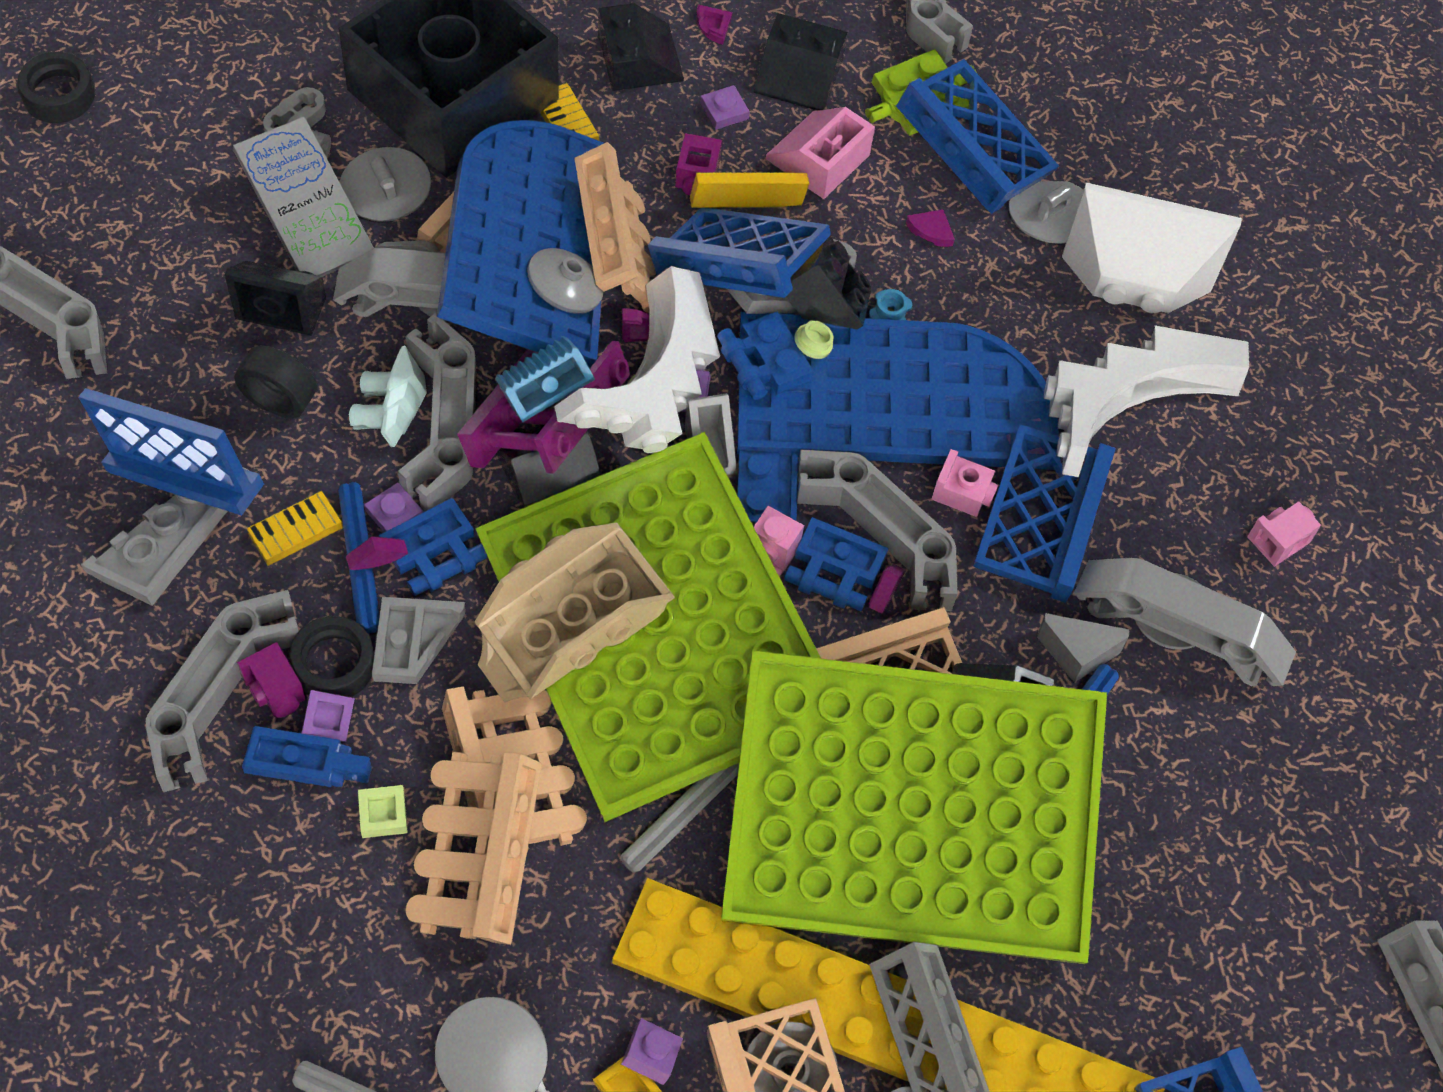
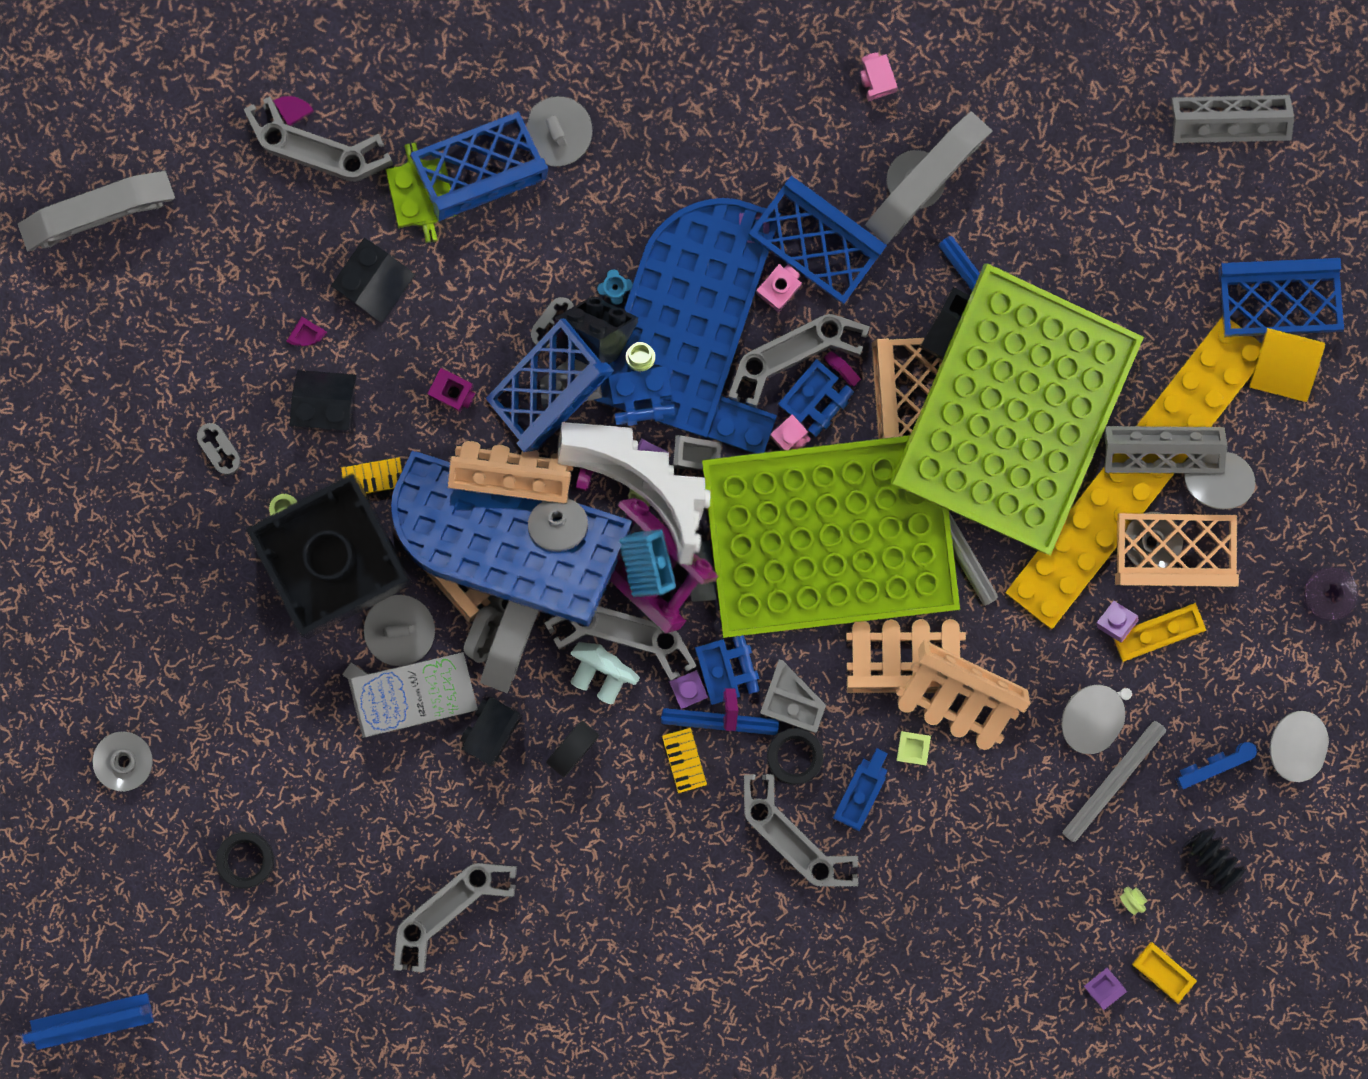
camera: 65 degrees left, 25 degrees up
(156, 548) = (673, 853): light grey wing -> none
(171, 453) = (624, 830): blue fence -> none
(272, 680) = (804, 798): magenta brick -> none
(291, 109) = (311, 688): light grey beam -> none
(328, 715) = (837, 768): medium lavender plate -> none
(565, 608) = (824, 591): tan slope -> none
(724, 107) = (394, 351): medium lavender plate -> none
(748, 189) = (487, 359): yellow tile -> none
(825, 147) = (459, 292): bright pink slope -> none
(932, 227) = (550, 230): magenta tile -> none
(1080, 644) = (925, 254): light grey slope -> none
(1126, 376) = (723, 100): white arch -> none
(1146, 248) = (637, 90): white slope -> none

